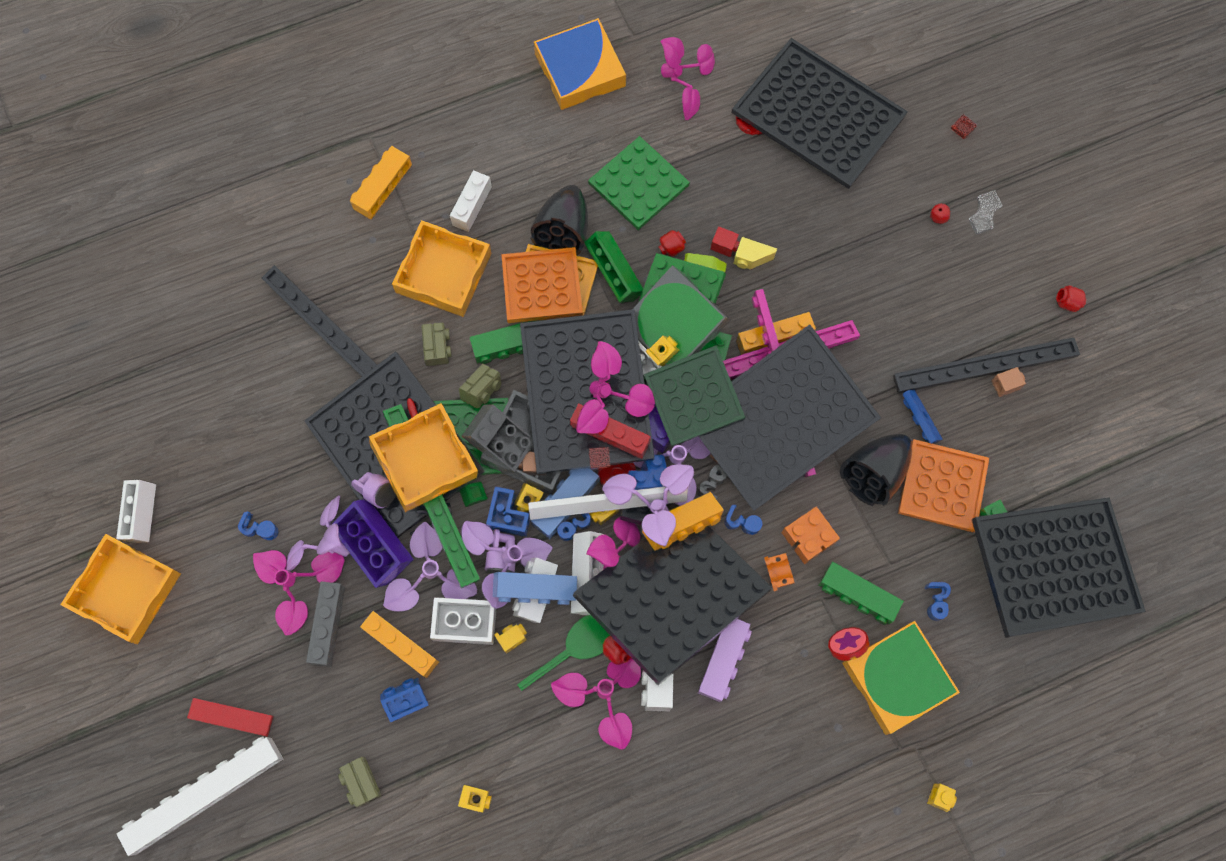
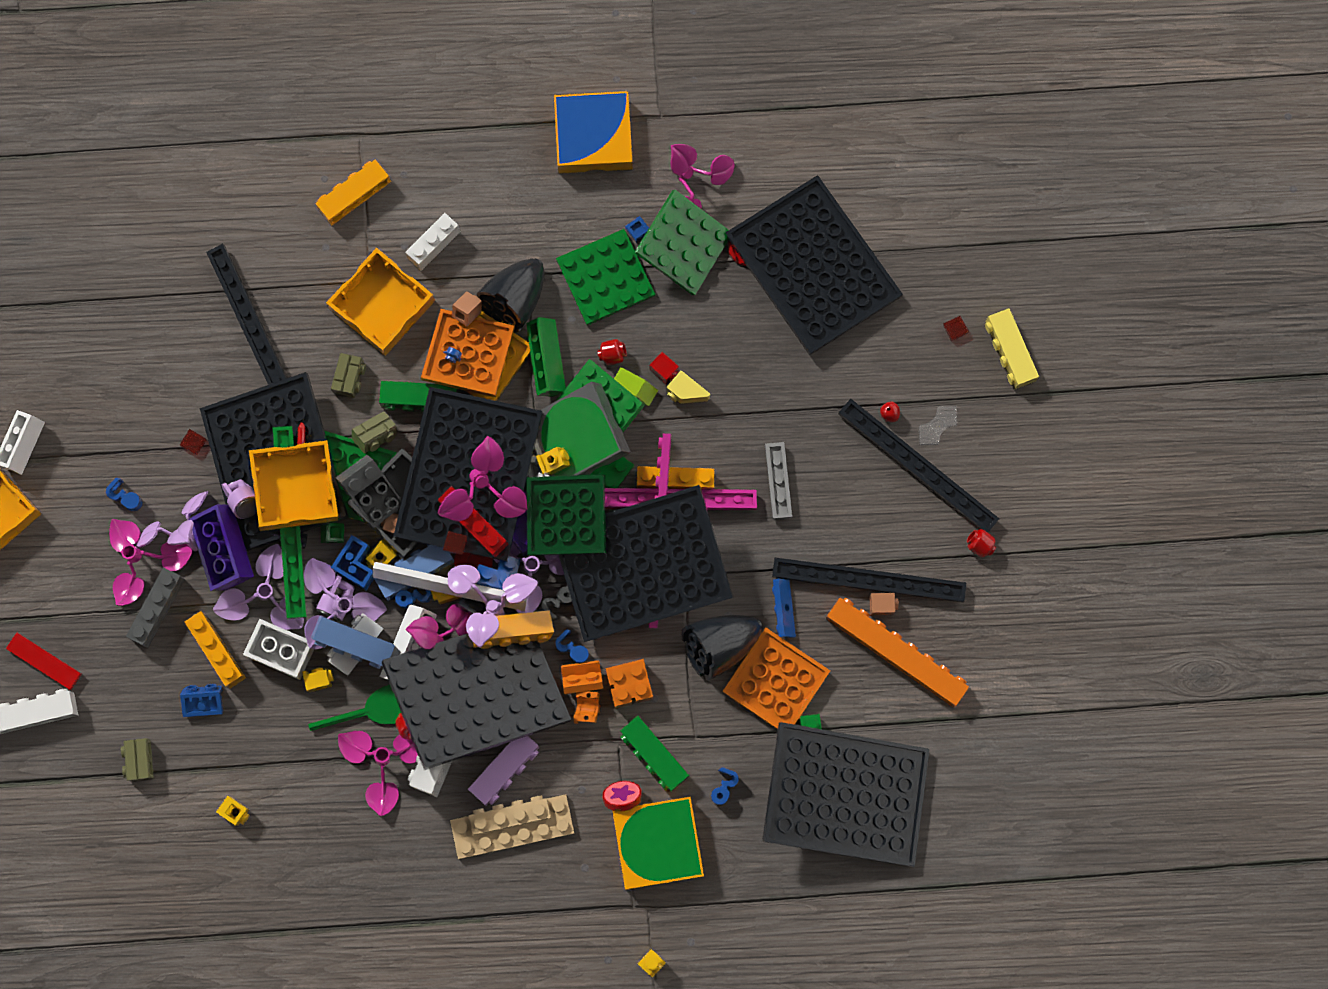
camera: 20 degrees right, 5 degrees up
(308, 455) = (193, 442): none -> clear red tile
(526, 244) = (466, 308): none -> nougat brick
(530, 289) = (452, 355): none -> blue plate
(651, 133) = (637, 229): none -> blue tile
(698, 127) = (683, 242): none -> green plate
(752, 712) = (512, 825): none -> tan plate
(763, 545) = (581, 677): none -> orange bracket
(868, 306) = (778, 480): none -> light grey plate
(985, 251) = (918, 466): none -> black plate
(1021, 126) = (1011, 349): none -> light yellow brick
(1041, 420) = (897, 652): none -> orange brick

